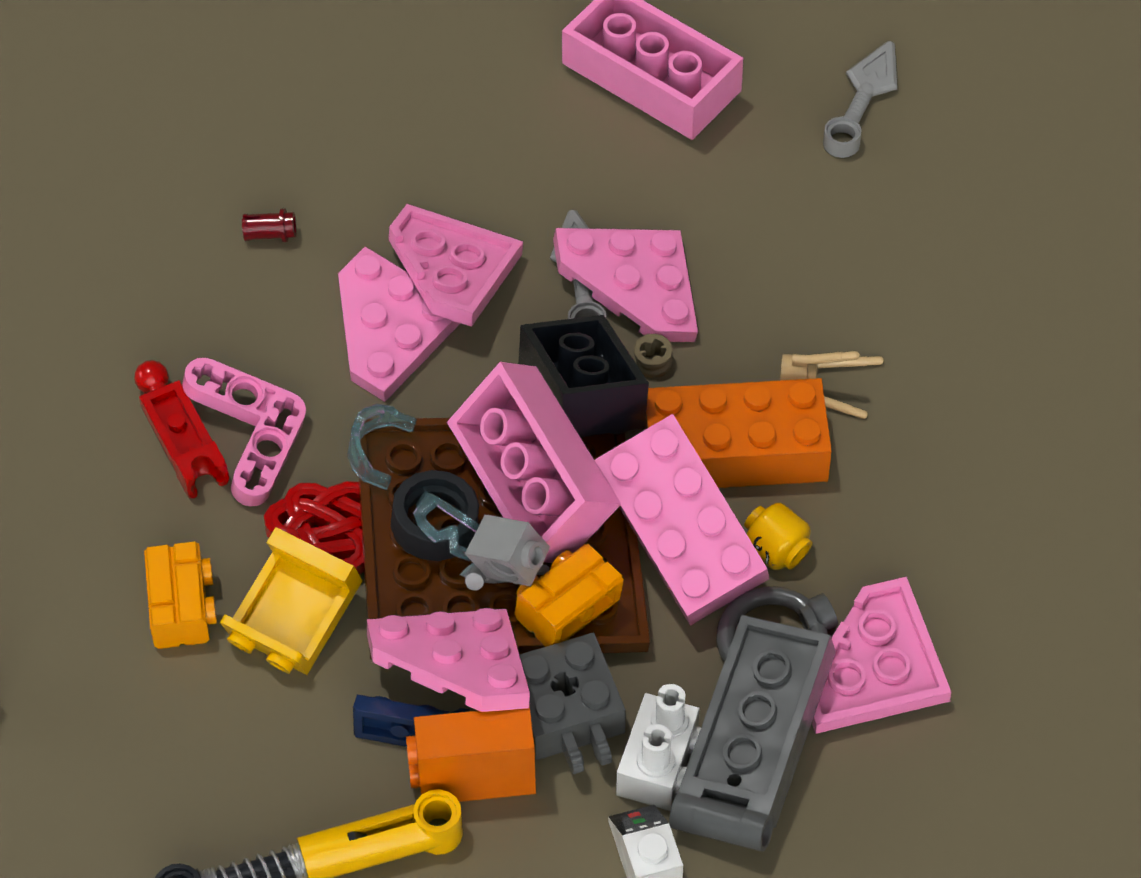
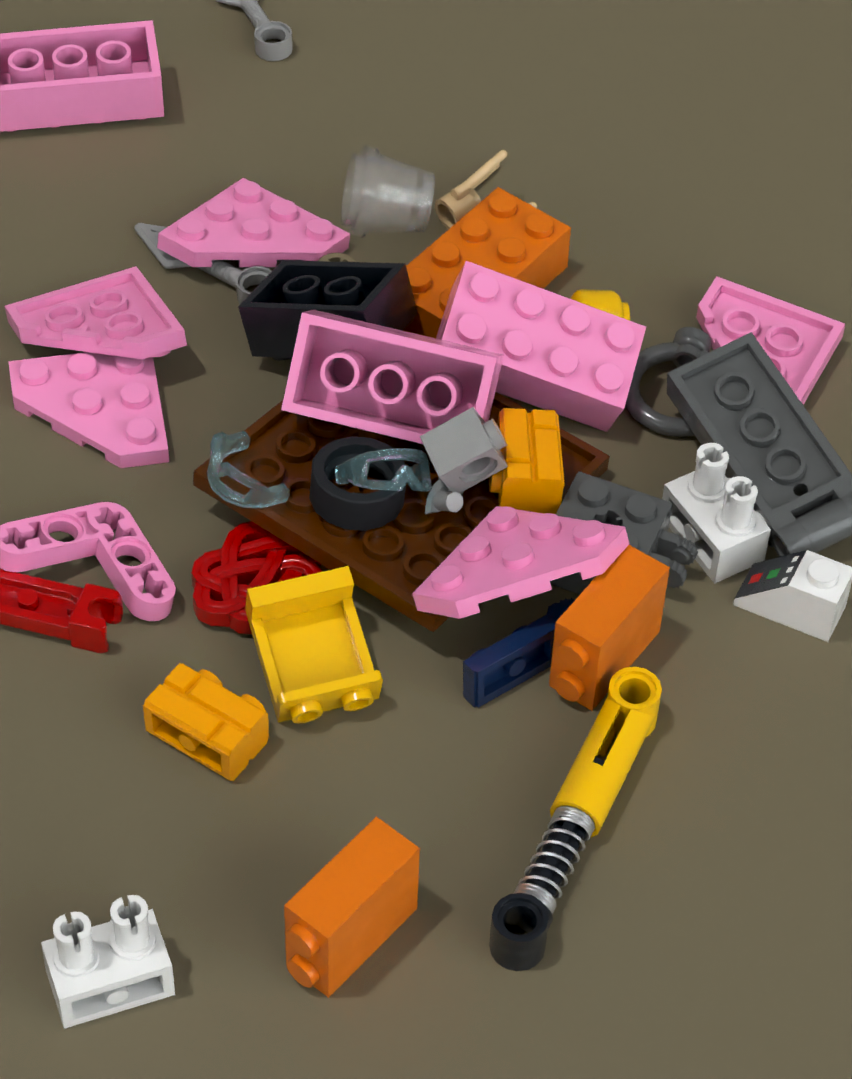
camera: 50 degrees left, 5 degrees down
(92, 785) = (351, 907): none -> orange brick
(745, 320) = (385, 195): none -> clear piece

